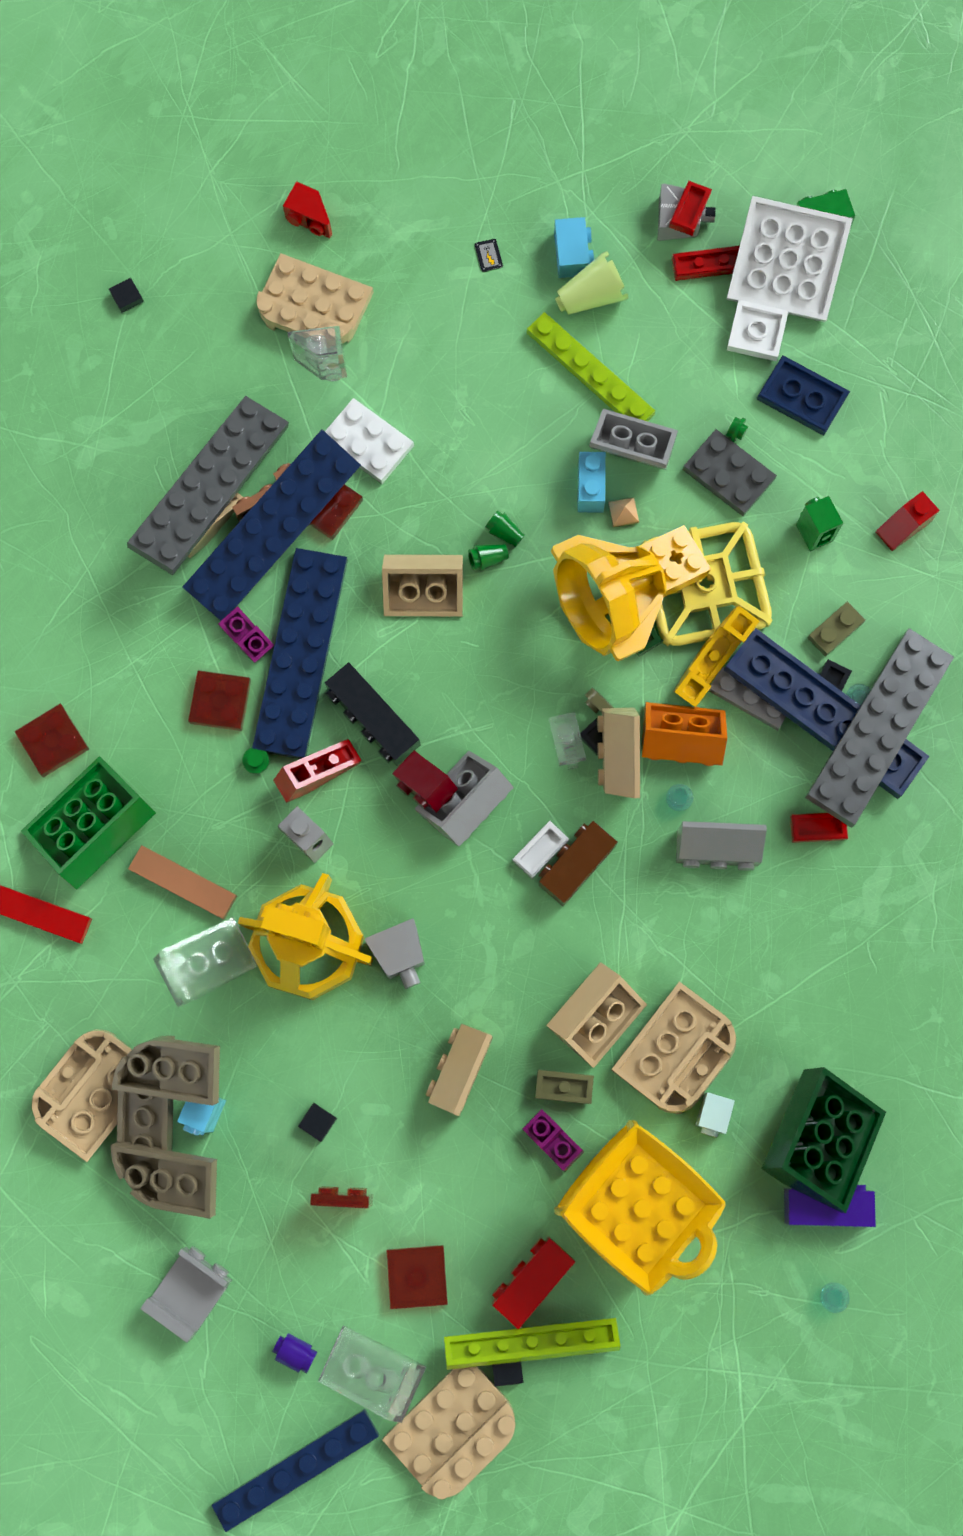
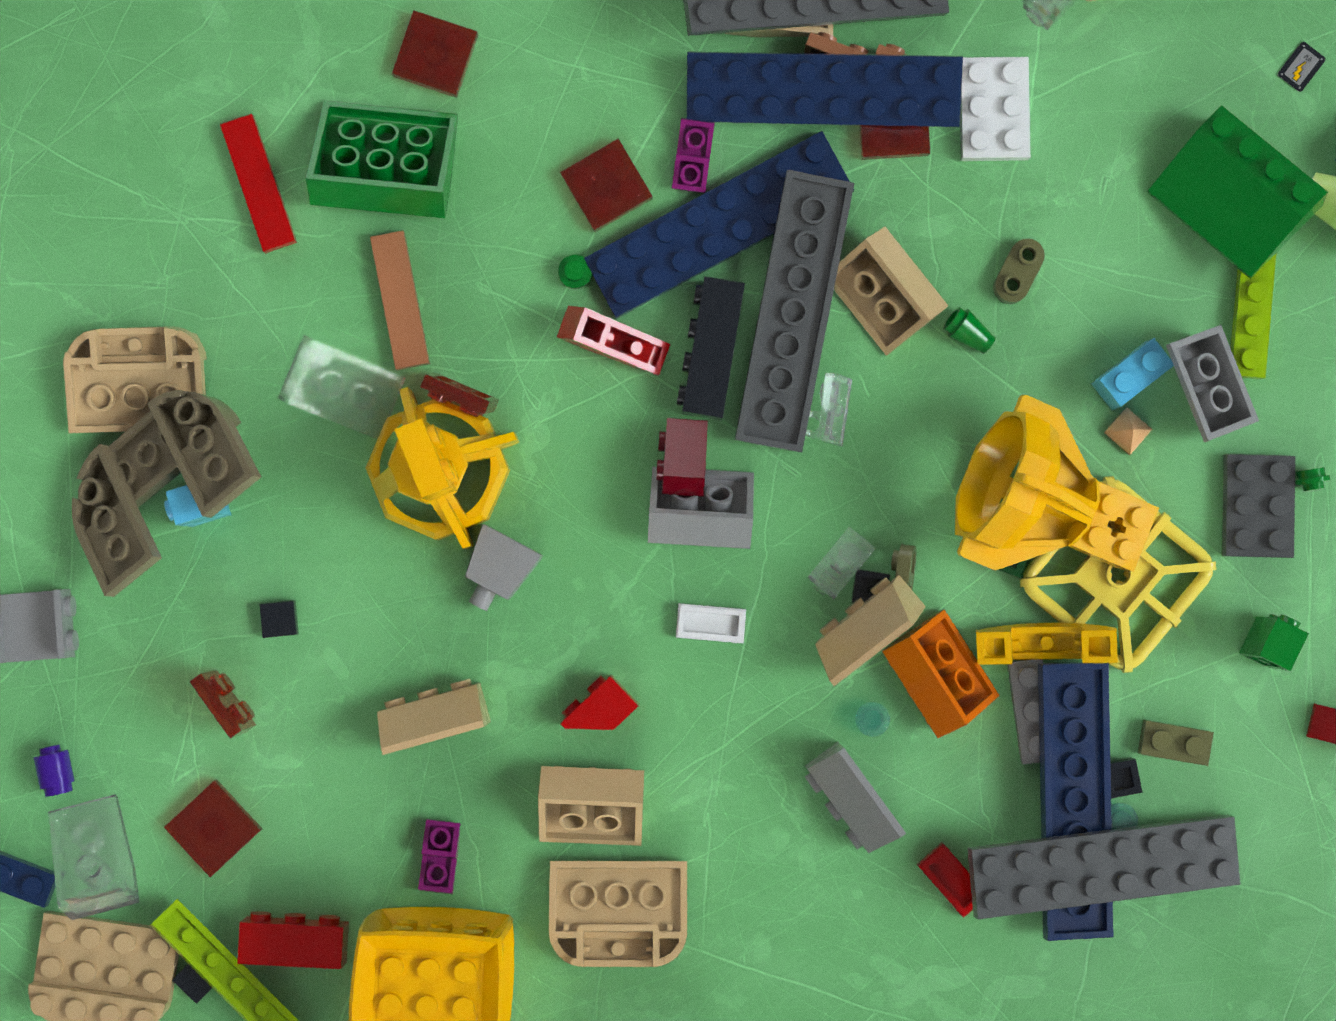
camera: 50 degrees right, 10 degrees up
(263, 892) = (446, 389): none -> clear red plate
(305, 834) = (539, 381): light grey torso -> none
(390, 647) = (794, 310): none -> dark grey plate
(464, 666) = (834, 403): none -> clear plate
(475, 499) = (1020, 270): none -> olive plate
(504, 528) = (1011, 325): green cone -> none
(532, 341) = (1237, 192): none -> green slope
(541, 957) = (603, 709): none -> red slope
(564, 1086) = (497, 828): olive plate -> none
(576, 862) = (725, 669): reddish brown brick -> none
(714, 1114) = (585, 993): light aqua brick -> none

